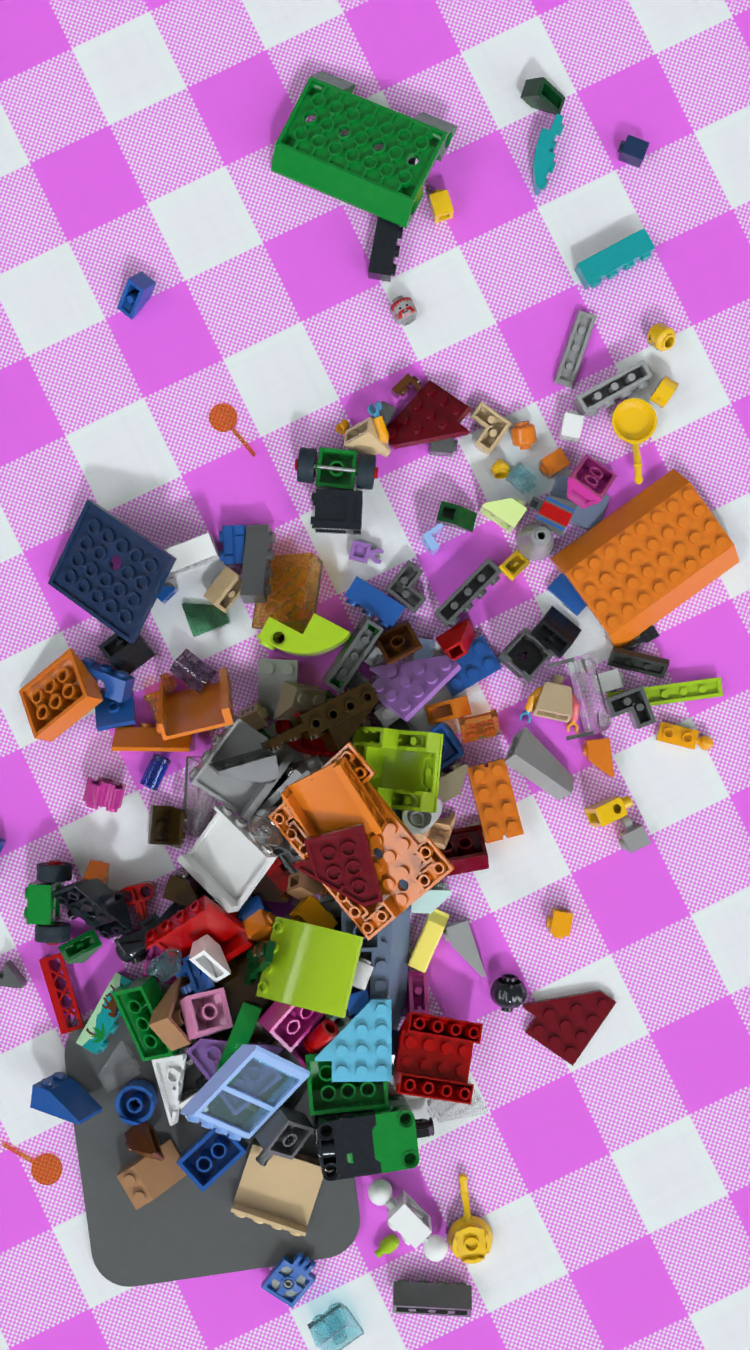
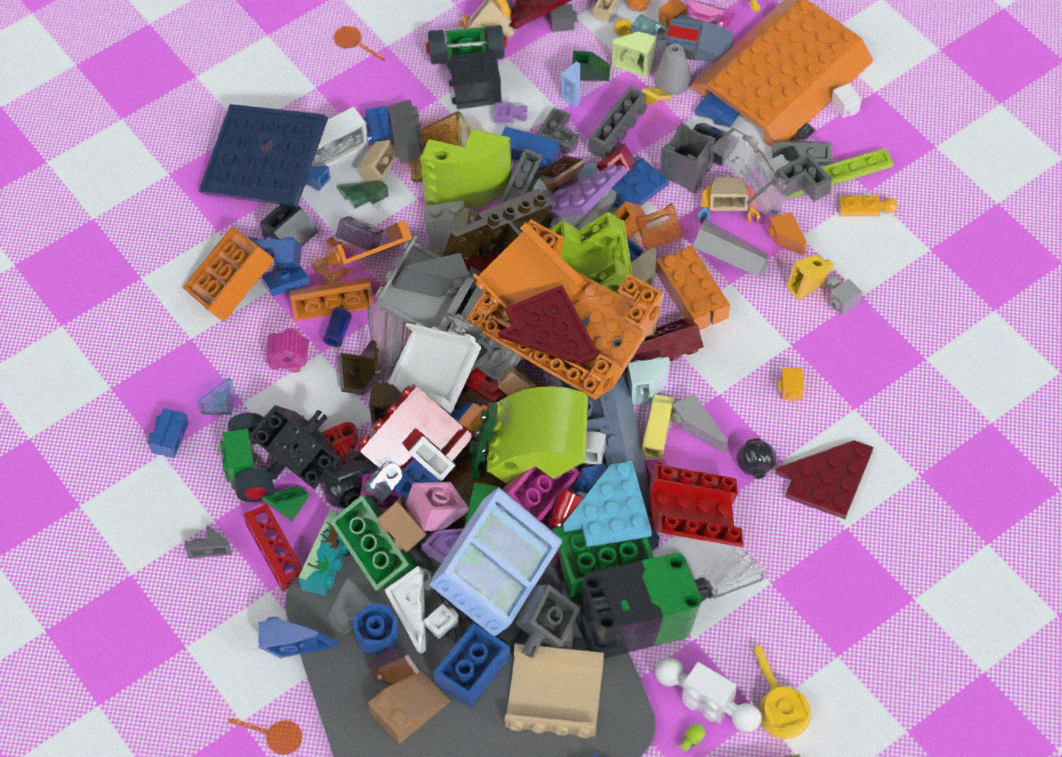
camera: 10 degrees left, 30 degrees down
(37, 828) = (219, 400): none -> clear light blue slope
(698, 610) = (846, 100): none -> white brick

